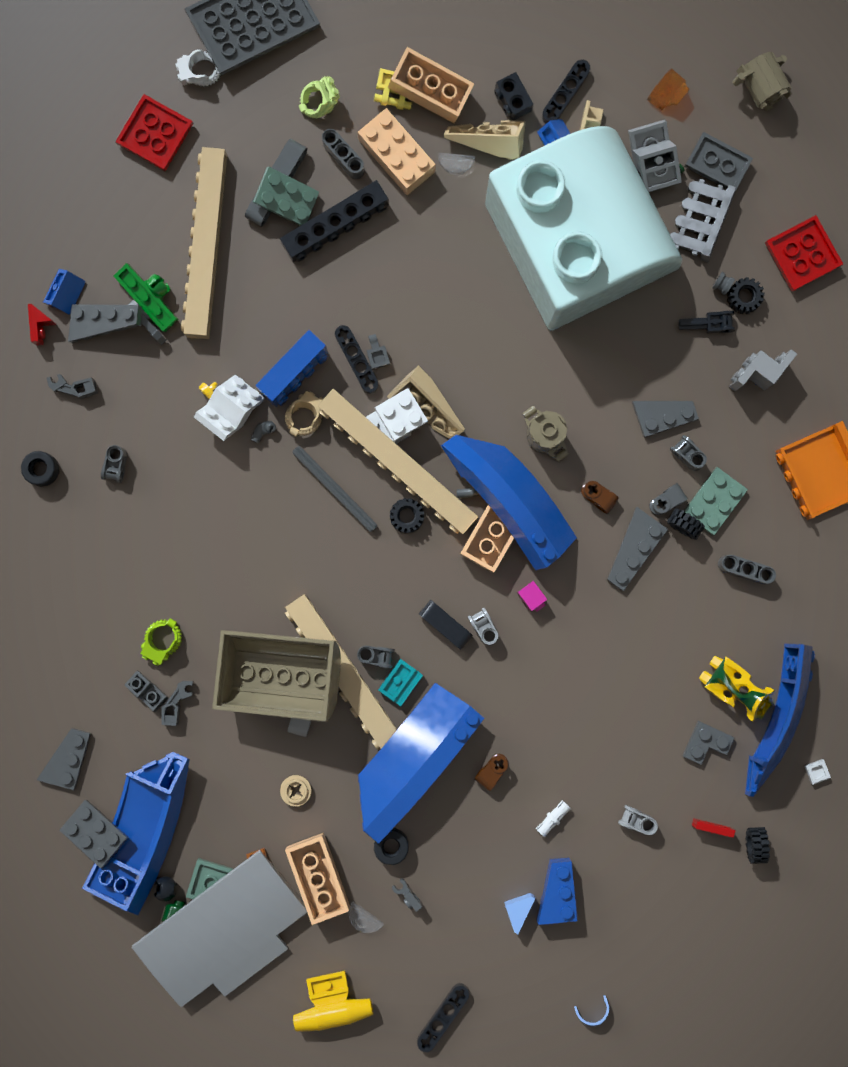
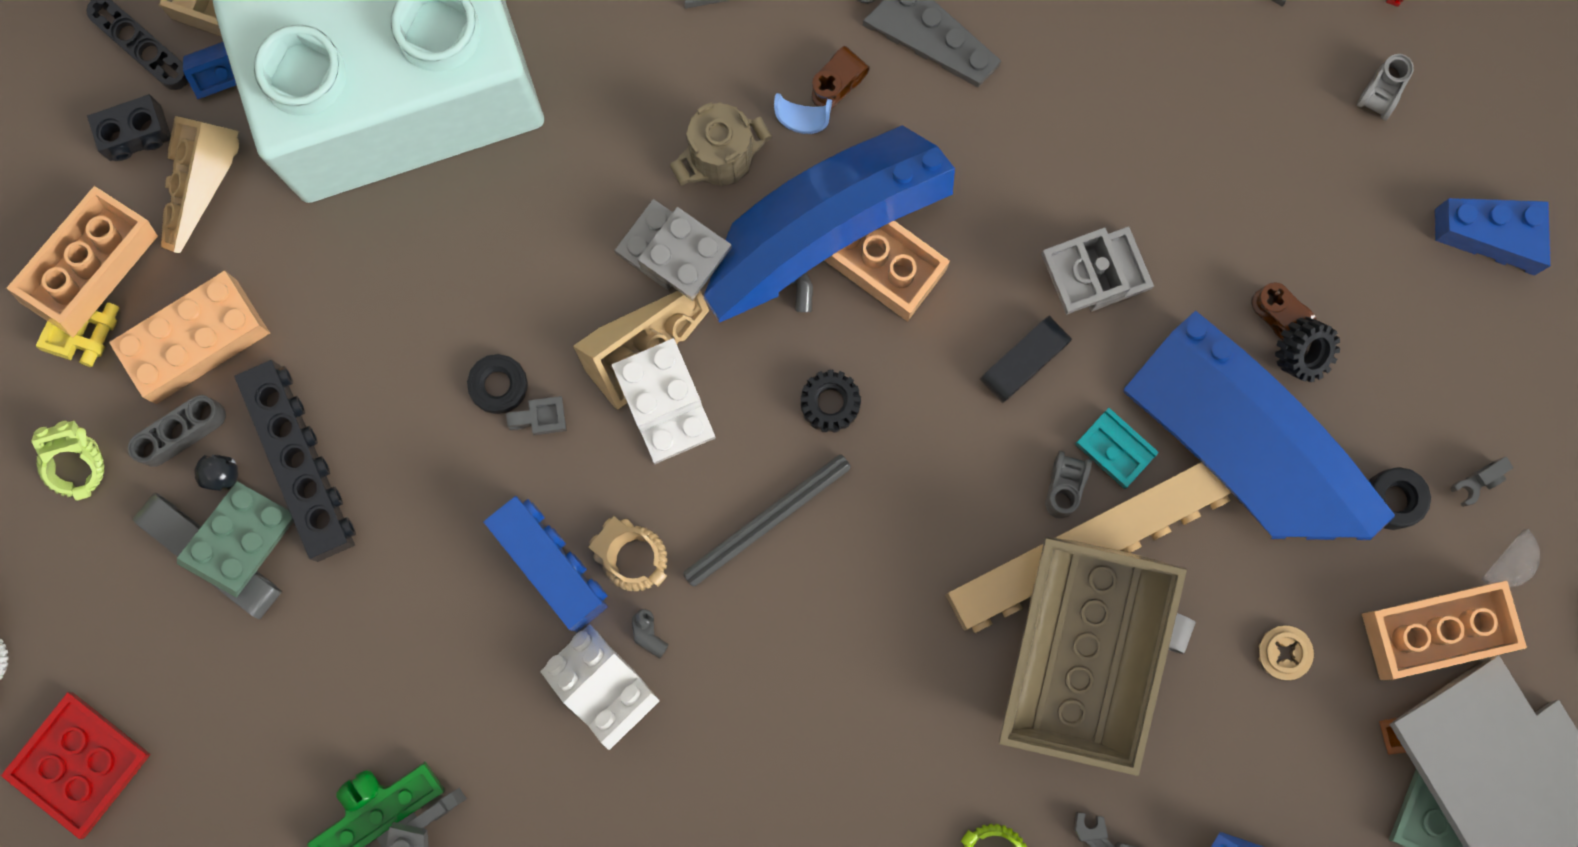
camera: 80 degrees left, 5 degrees down
(205, 243) = (294, 695): tan brick -> none
(208, 391) = (562, 721): yellow tile -> none
(322, 179) = (216, 472): none -> black piece
(358, 358) = (543, 448): black beam -> none
(393, 315) = (483, 369): none -> black tyre
(398, 461) = (734, 402): tan brick -> none
(456, 163) = (228, 241): clear plate -> none
(465, 792) = (1295, 344): none -> black tyre
(482, 414) = (673, 249): none -> light grey bracket
(483, 625) = (1031, 297): light grey piece -> none
(501, 659) = (1097, 269): none -> light grey bracket
(518, 910) = (1518, 298): light blue slope -> none
(532, 596) = (994, 208): dark pink brick -> none
(553, 818) = (1370, 223): white pin -> none
(573, 477) = (802, 118): none -> light blue helmet

